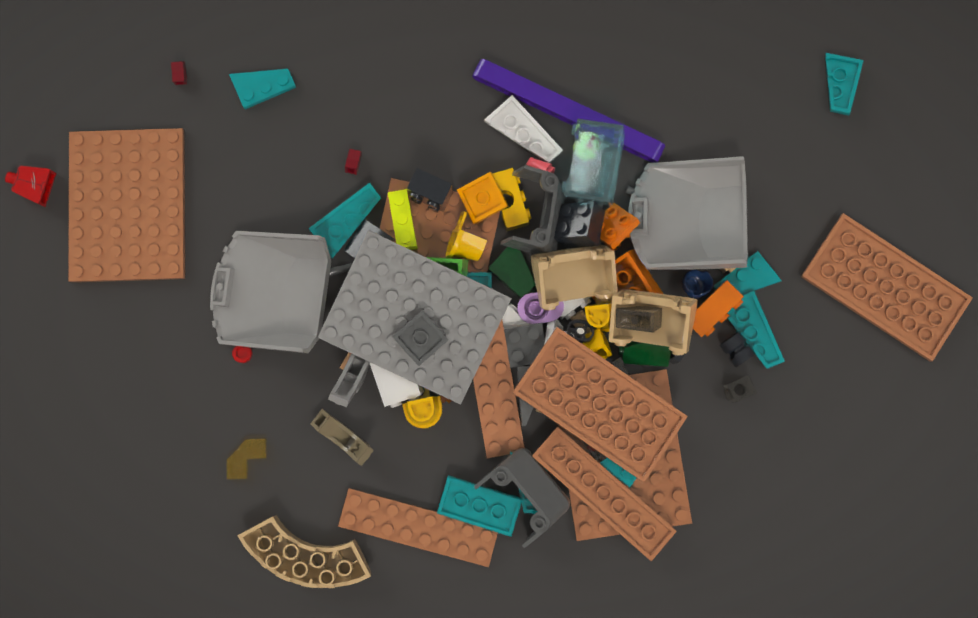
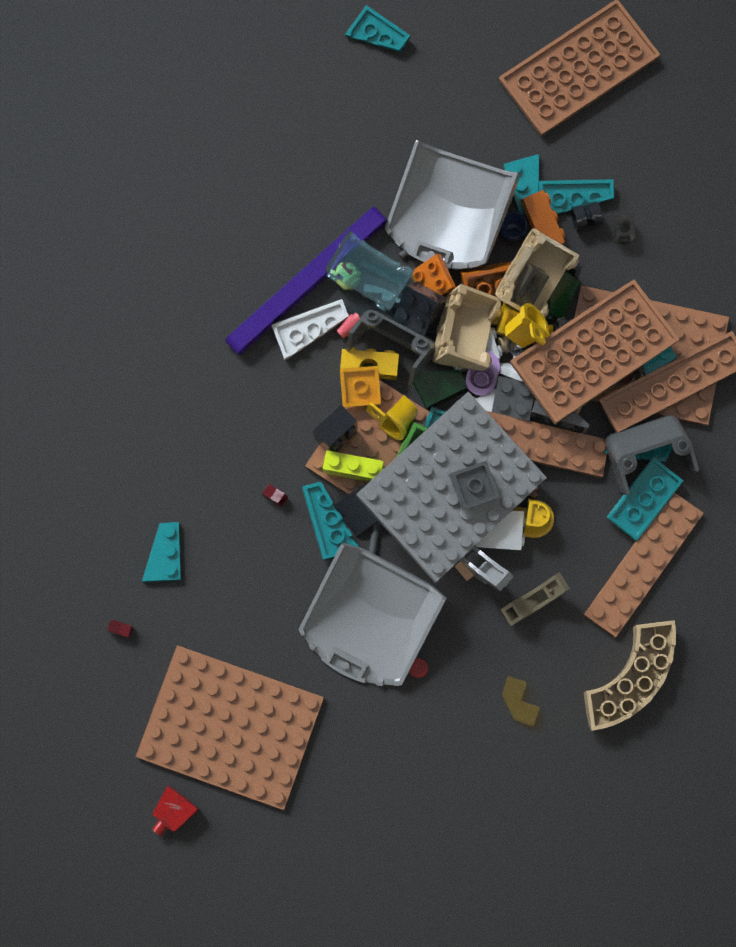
camera: 65 degrees left, 5 degrees down
(597, 331) = (527, 327): none -> yellow container

